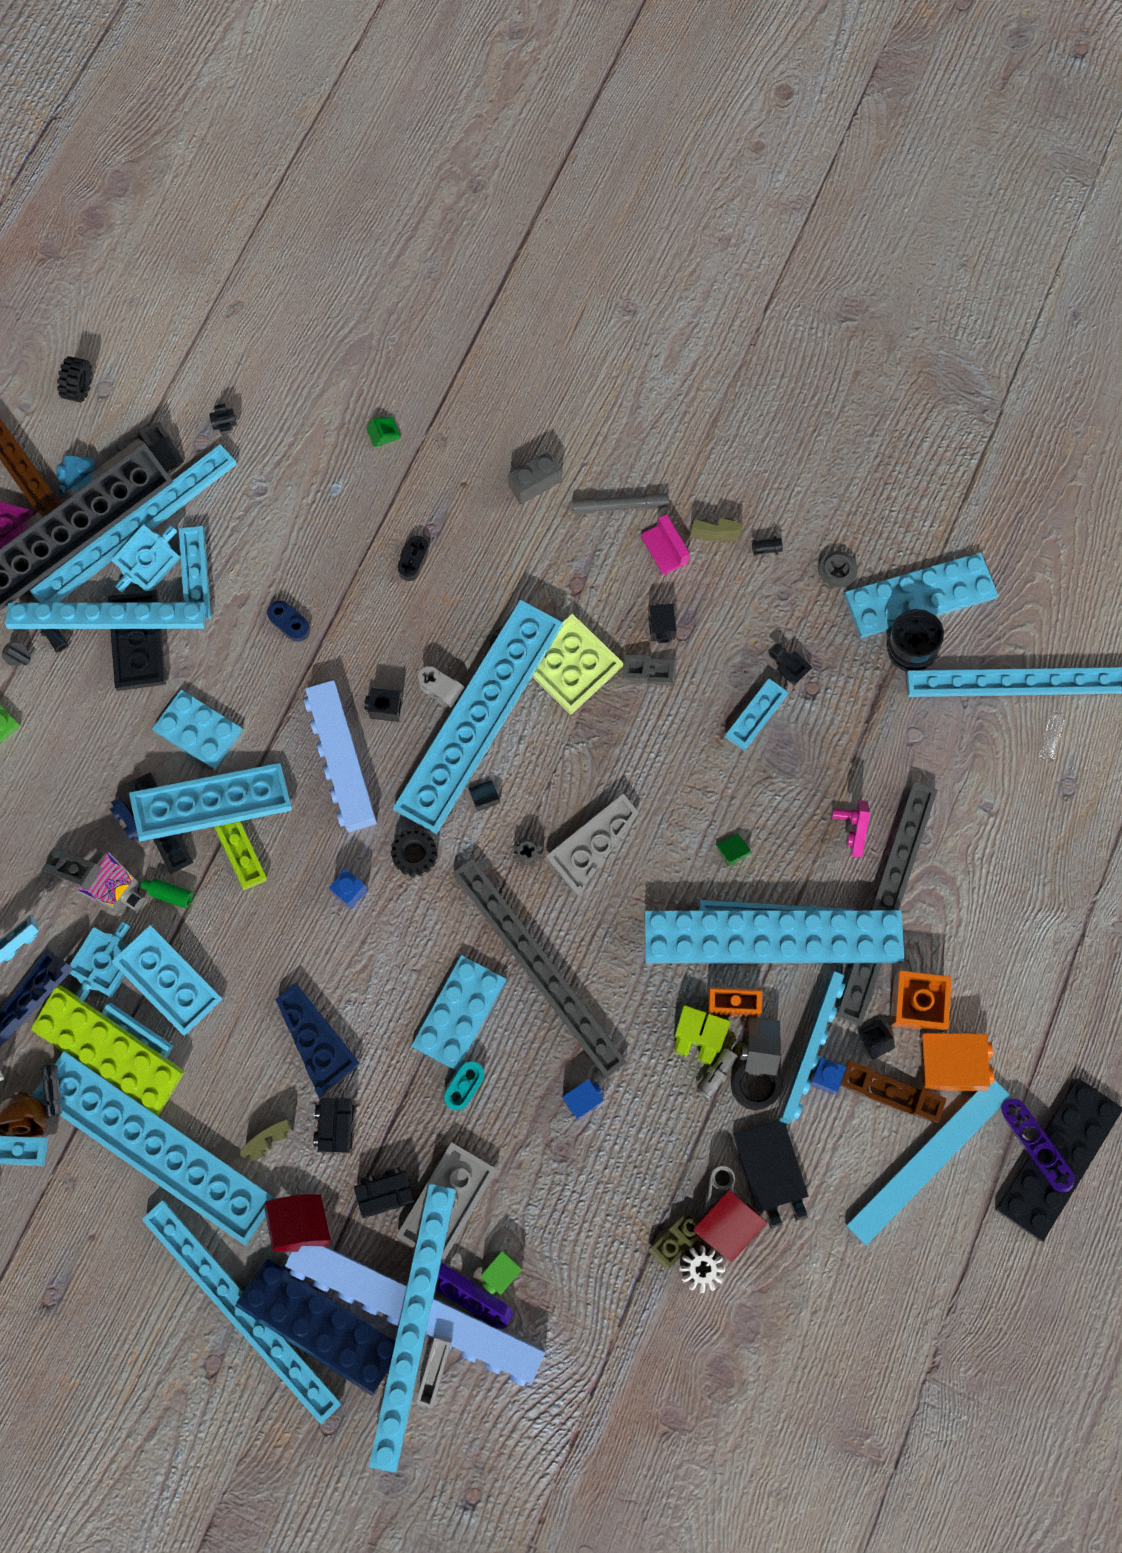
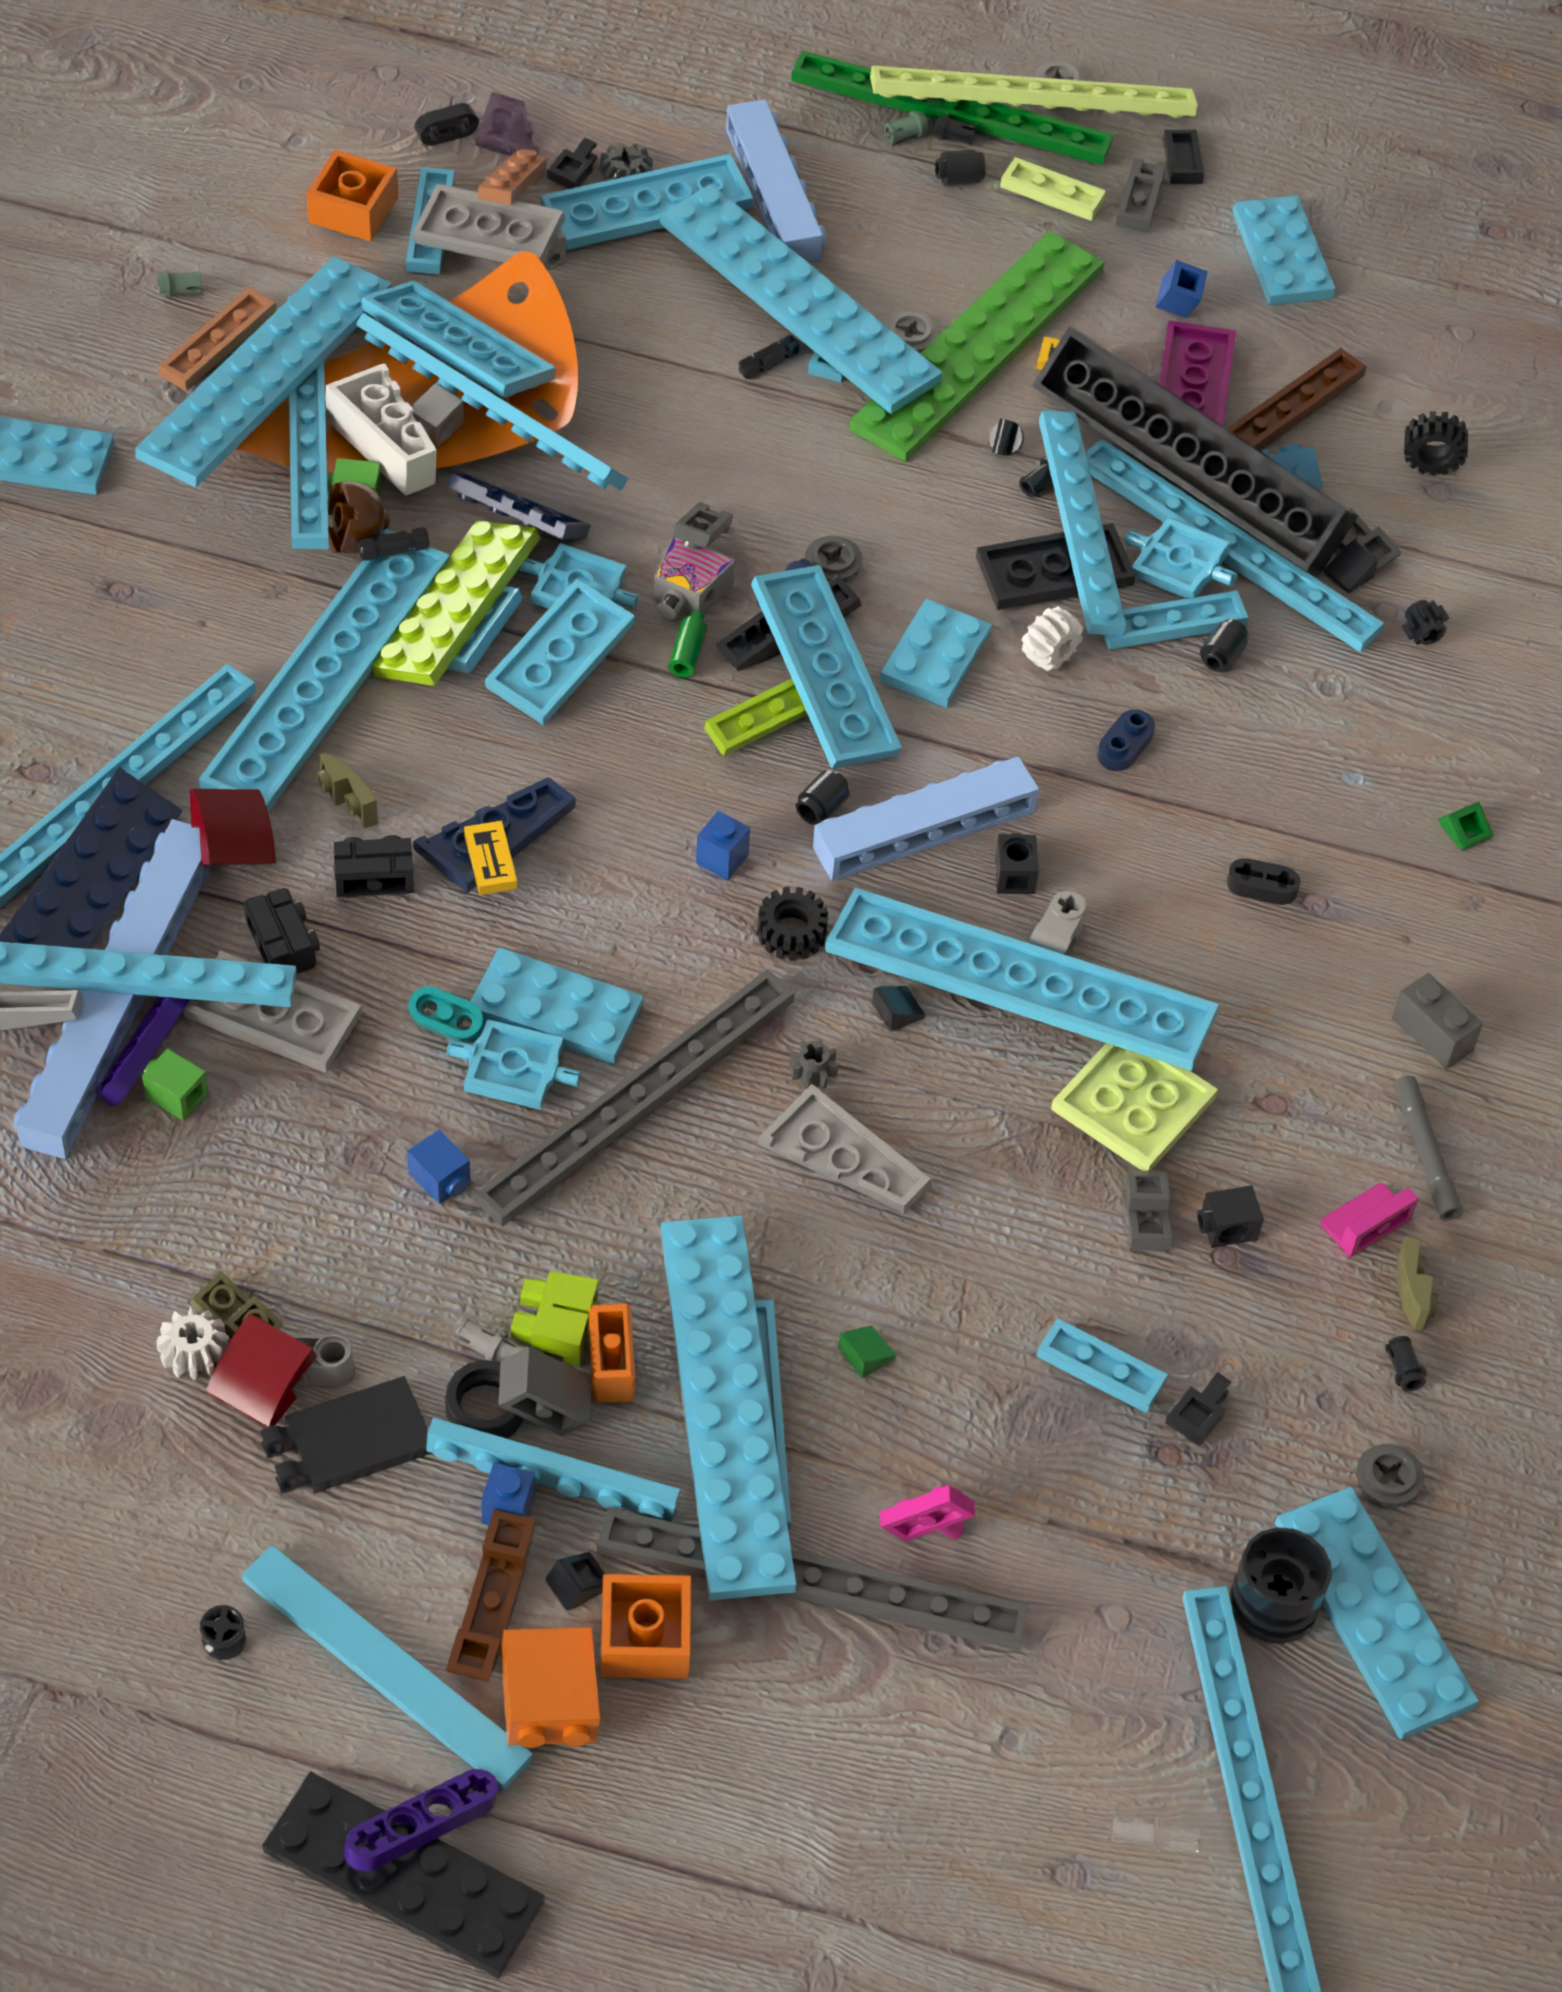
camera: 80 degrees right, 20 degrees down
(105, 774) = (831, 547): none -> dark grey gear
(206, 651) = (1052, 638): none -> white gear
(223, 545) = (1224, 645): none -> black brick
(314, 819) = (822, 797): none -> black brick
(343, 1044) = (490, 857): none -> yellow tile
(506, 1044) = (513, 1064): none -> medium azure plate
(910, 1259) = (217, 1623): none -> black wheel

